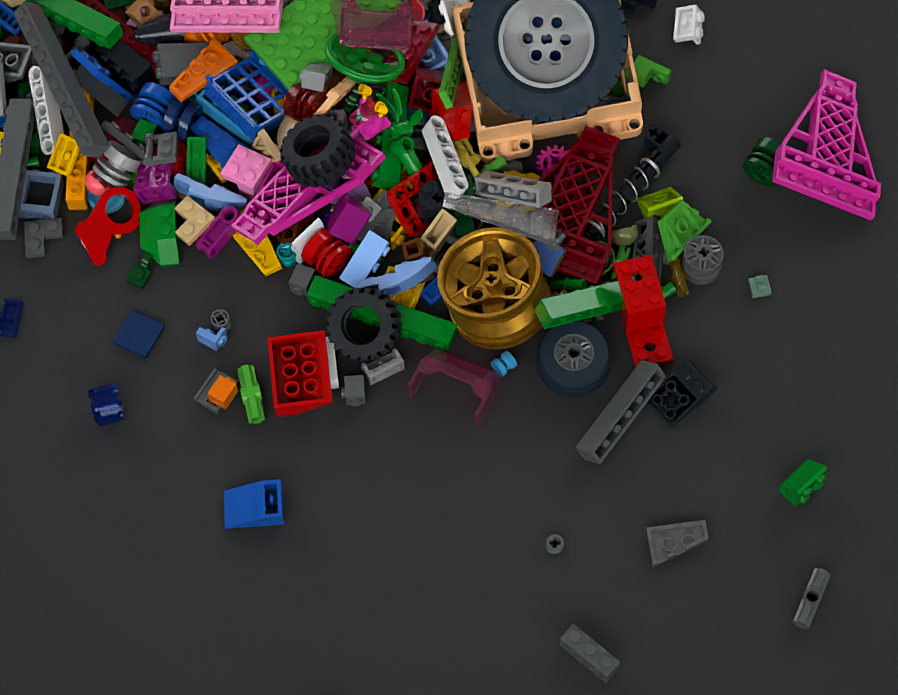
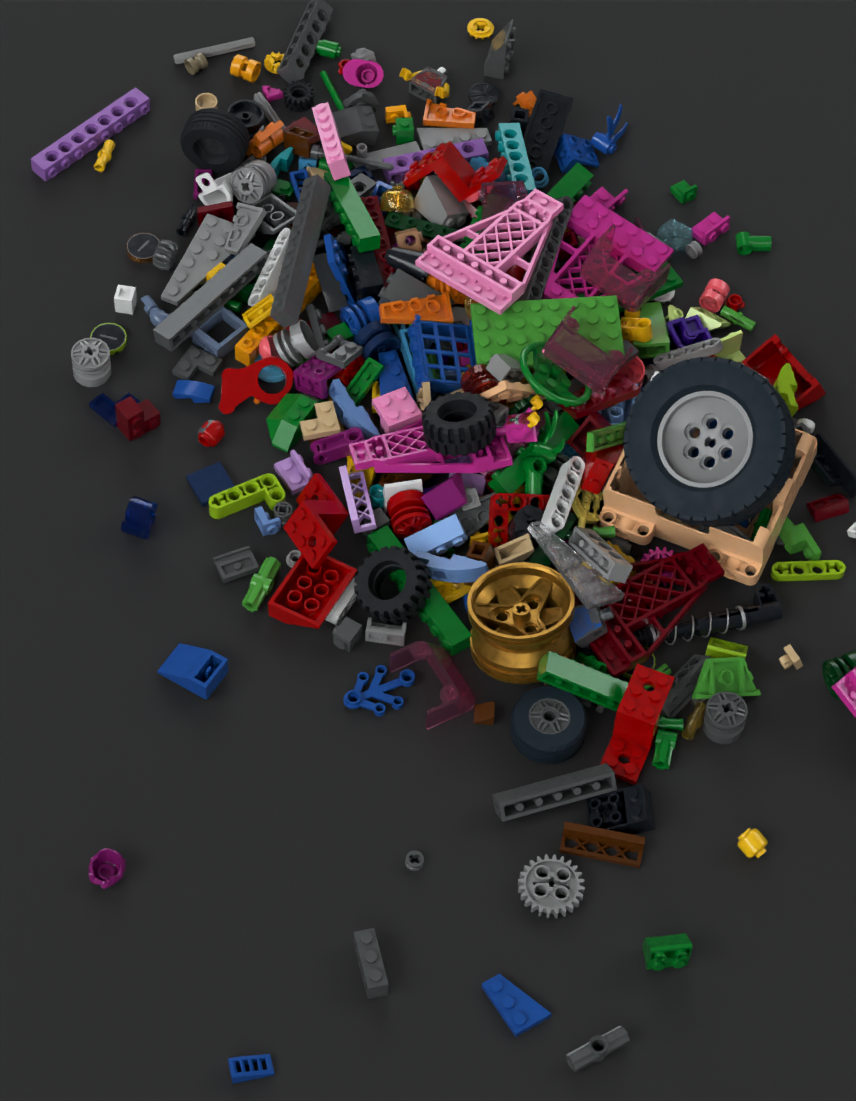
camera: 30 degrees right, 10 degrees down
(31, 318) = (136, 418): none -> dark red brick
(59, 260) = (197, 391): none -> blue slope
(104, 290) = (211, 433): none -> red head
(141, 274) = (249, 440): dark green plate -> none
(188, 313) = (223, 503): none -> lime beam
(200, 279) = (293, 472): none -> lavender bracket
(223, 391) = (238, 565): orange brick -> none
(258, 310) = (316, 521): none -> red bracket
(260, 349) = (293, 555): none -> light grey plate
(273, 273) = (351, 499): none -> lavender fence
(415, 422) = (377, 691): none -> blue plant
(503, 363) = (492, 692): dark azure wheel -> none
(514, 382) = (484, 713): none -> reddish brown slope
(625, 236) = (673, 657): olive hair -> none
(643, 27) = (828, 507): none -> dark red slope
(668, 92) = (807, 567): none -> lime beam
(674, 539) = (518, 923): flat silver wing -> none
(675, 318) = (664, 745): none -> green piece
(684, 423) = (604, 838): none -> reddish brown fence
(686, 505) = (549, 902): none -> light grey gear
(712, 175) = (790, 658): none -> tan tile
(721, 608) = (514, 1005): none -> blue wing
(759, 286) = (761, 772): sand green tile -> none
(798, 349) = (752, 843): none -> yellow head

